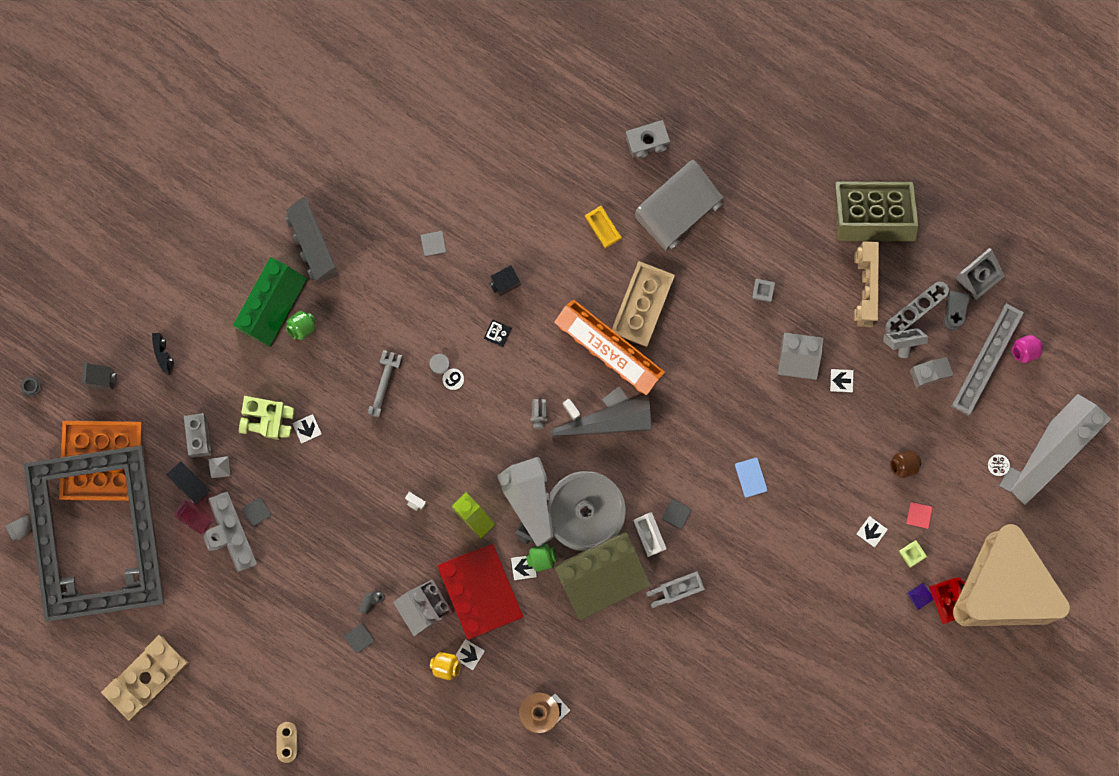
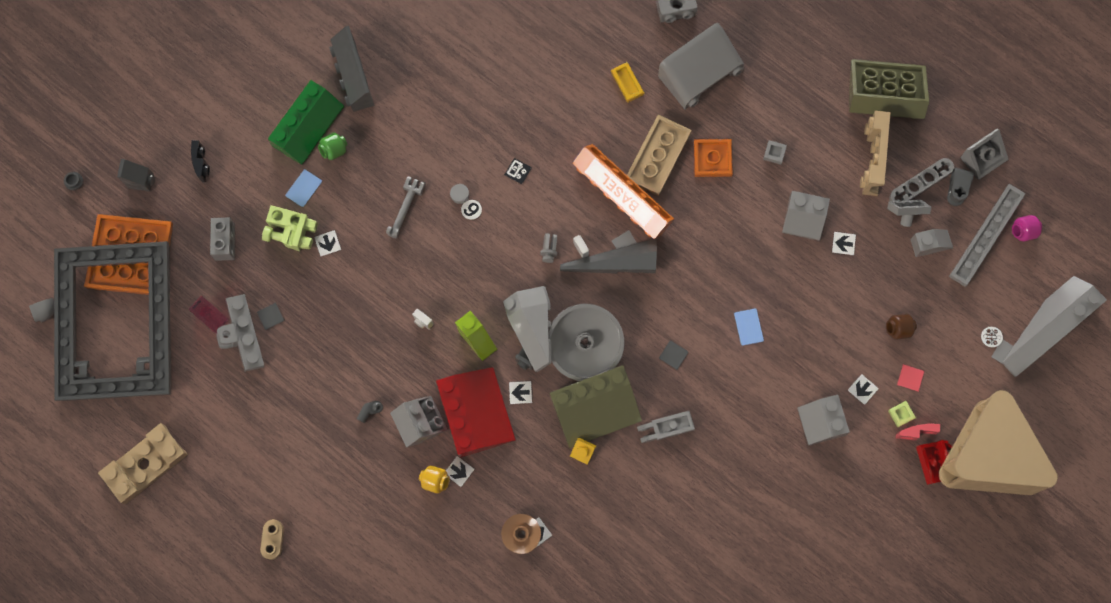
camera: 10 degrees right, 5 degrees down
(187, 482) = (208, 282): black slope -> none
(219, 467) = (240, 271): light grey slope -> none
(274, 371) = (303, 188): none -> light blue sticker
(359, 638) = (354, 445): dark grey sticker -> none
(433, 243) = (465, 84): light grey sticker -> none
(504, 281) = (529, 122): black brick -> none
(541, 557) = (538, 383): bright green head -> none
(593, 622) = (583, 450): none -> yellow plate
(649, 534) = (645, 371): white plate -> none
(699, 301) = (713, 158): none -> orange tile
(833, 568) = (823, 420): none -> light grey slope
(920, 596) = (906, 456): dark purple slope -> none
(925, 572) = (913, 432): none -> coral slope

